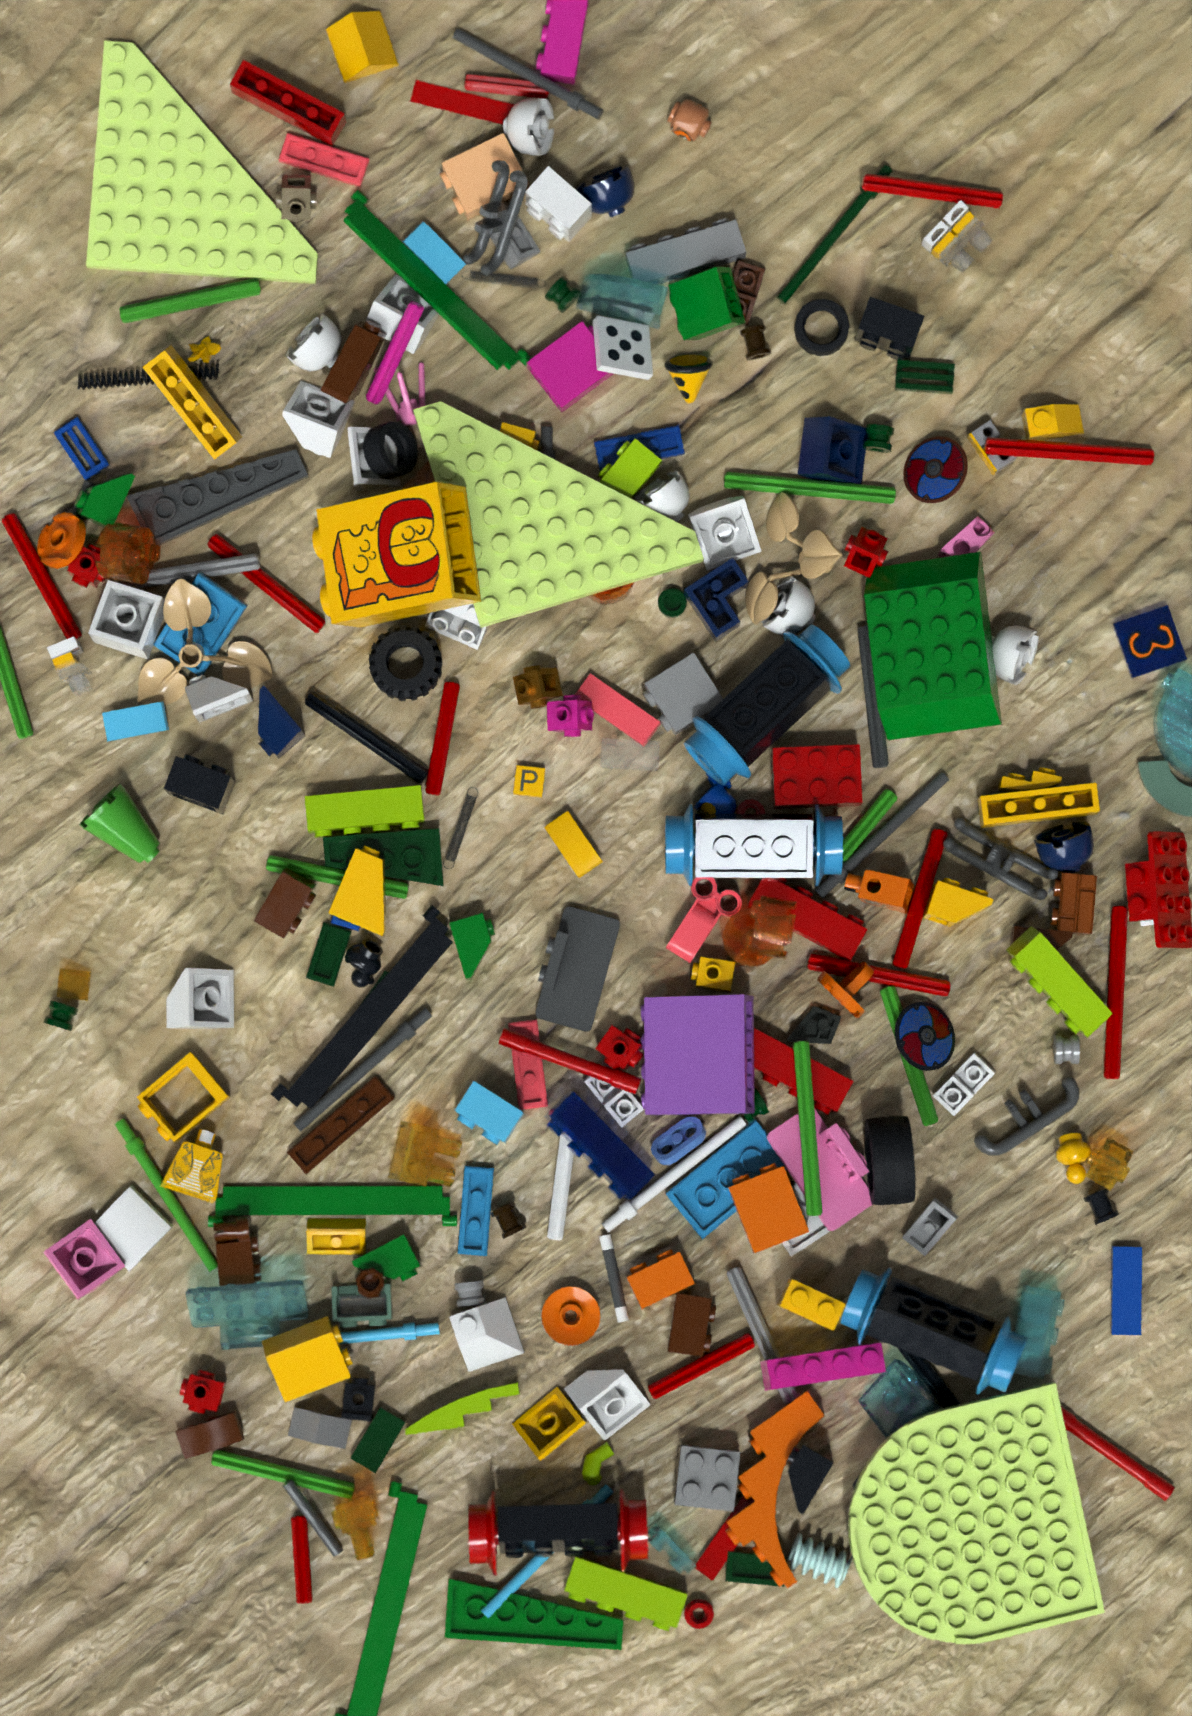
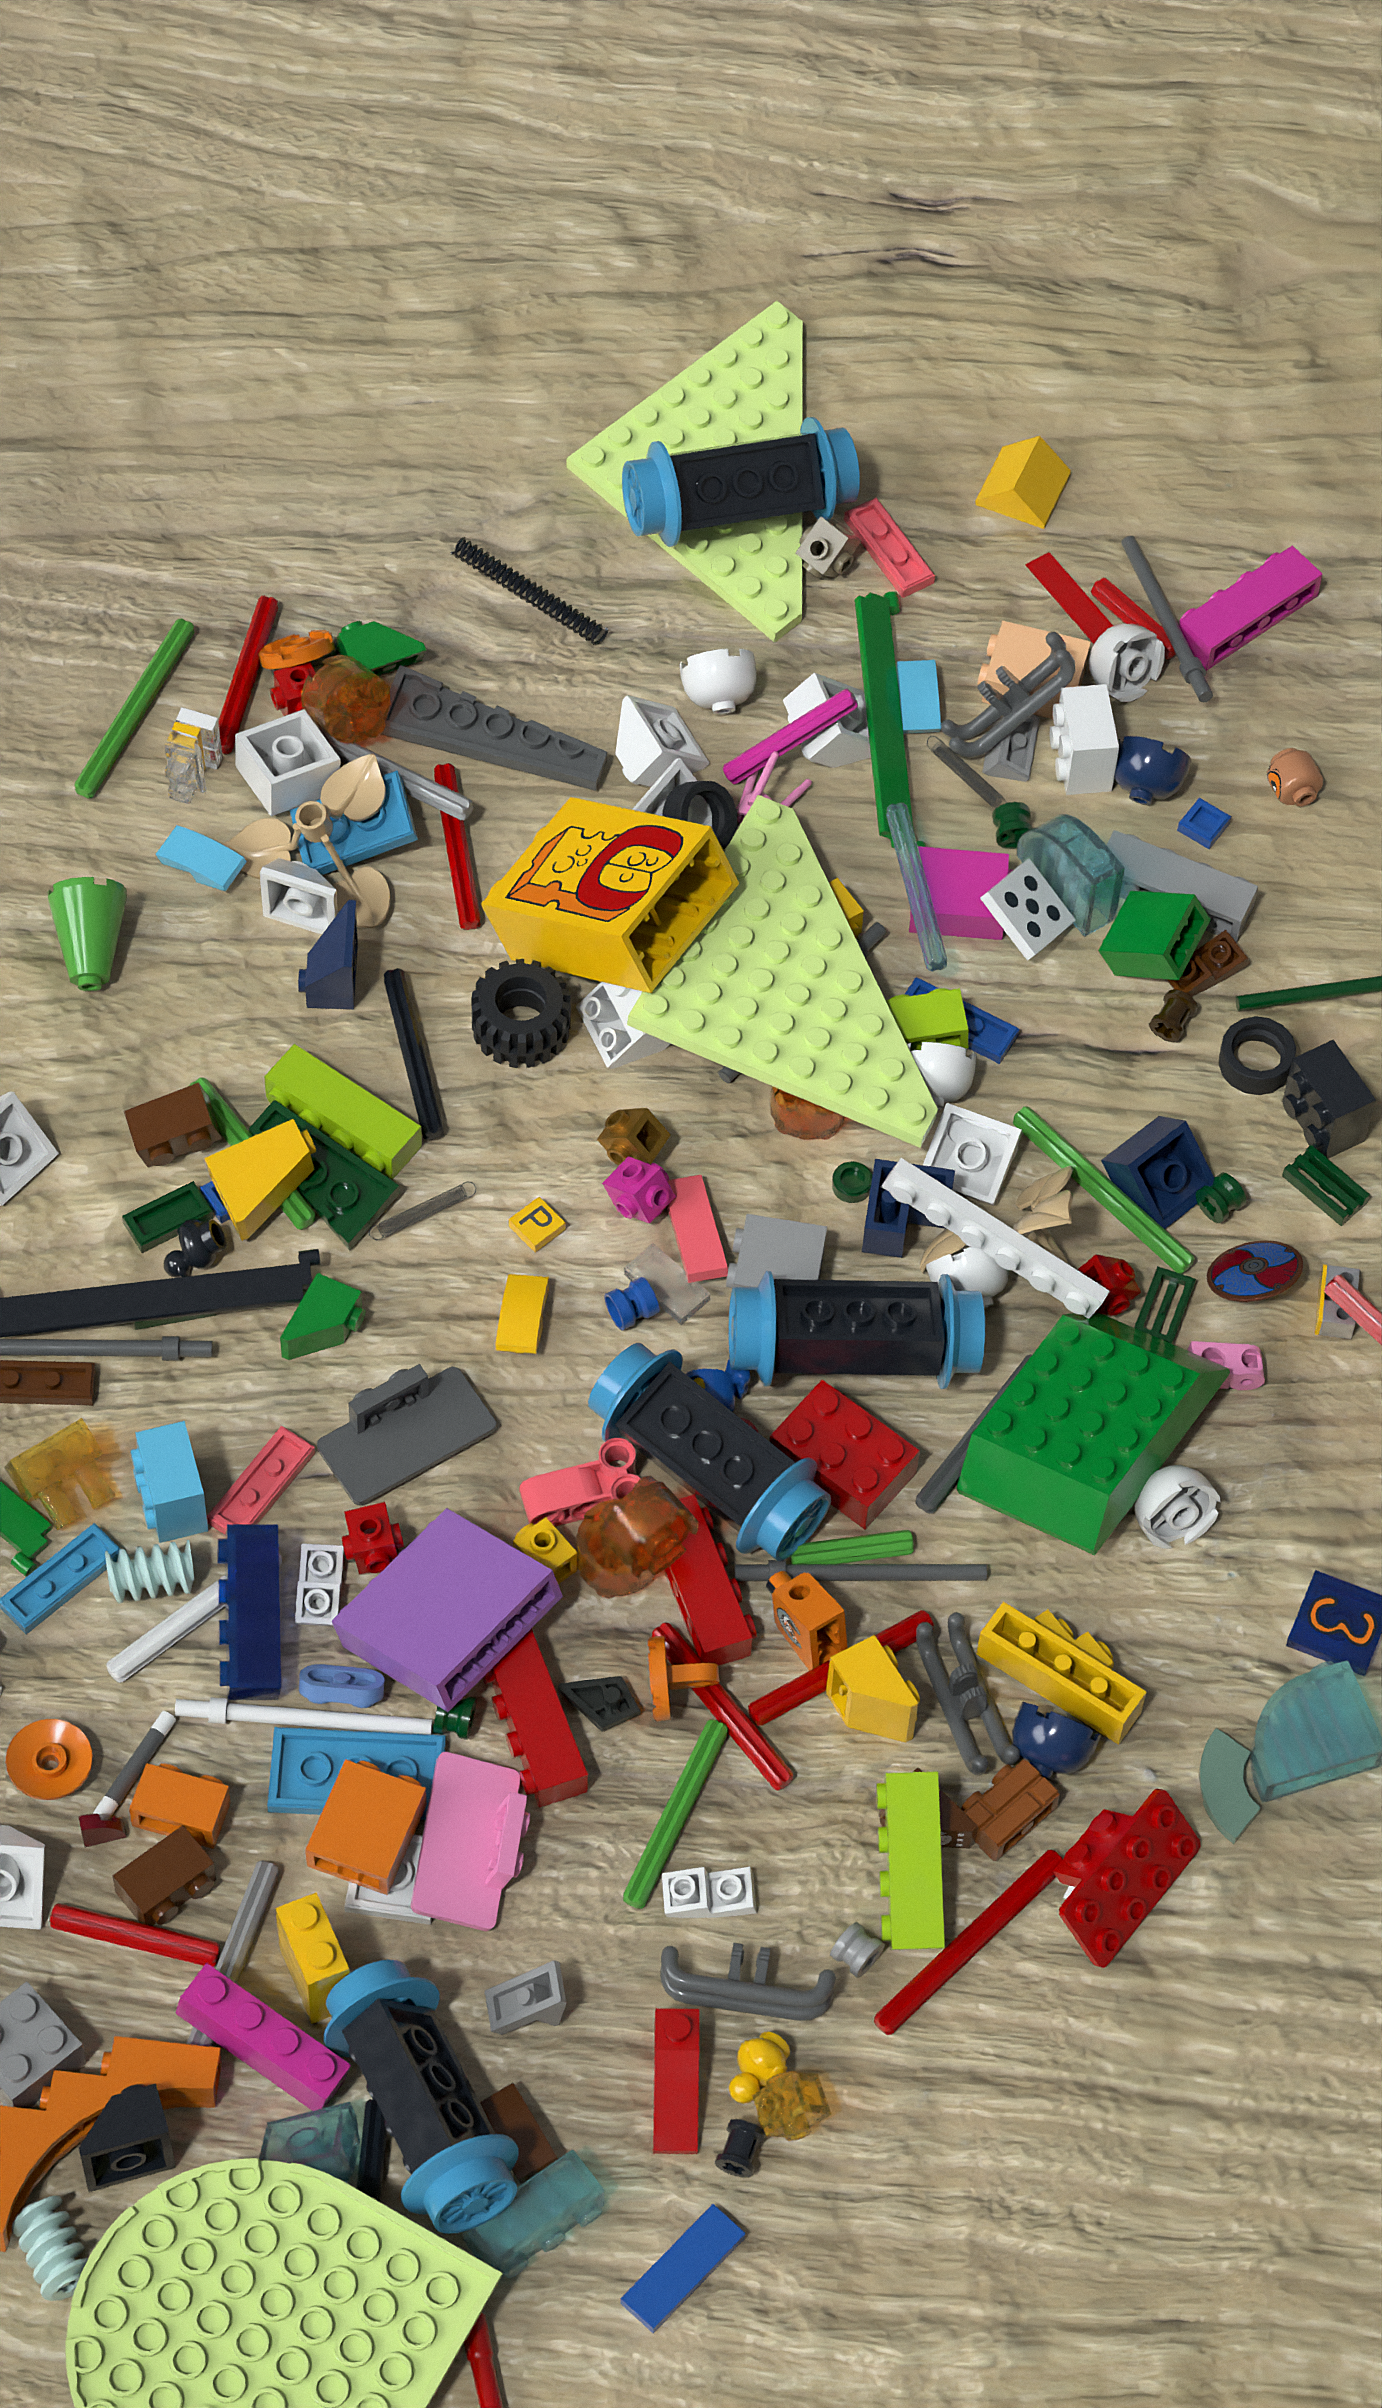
camera: 40 degrees right, 25 degrees down
(95, 469) = (406, 574): blue tile -> none
(190, 300) = (636, 561): bright green axle -> none
(192, 402) = (546, 629): yellow brick -> none
(200, 784) = (202, 951): black brick -> none
(203, 350) = (605, 609): yellow plant -> none
(217, 206) = (740, 481): none -> brick
(288, 103) = (901, 468): red brick -> none
(354, 361) = (741, 714): reddish brown slope -> none
(442, 738) = (488, 1115): red axle -> none
(508, 1220) = (83, 1611): dark brown bush -> none
(523, 1169) = (150, 1571): none -> light aqua piece
(526, 1045) = (336, 1560): red piece -> none
(553, 391) = (916, 887): none -> clear light blue axle
(625, 786) = (631, 1303): none -> blue wheel
(632, 1326) = (99, 1831): none -> dark red tile
(662, 194) = (1204, 823): none -> blue tile
(688, 373) = (1073, 990): yellow hat -> none
(789, 593) = (995, 1239): none -> white plate
(807, 1128) = (489, 1776): bright green axle -> none
(889, 529) = (1175, 1279): none -> dark green tile
(890, 1160) = (546, 1879): black tyre -> none
(924, 1036) = (711, 1802): shield -> none
(986, 1297) = (512, 2118): none -> reddish brown slope
(1039, 1200) = (676, 2081): none -> red slope

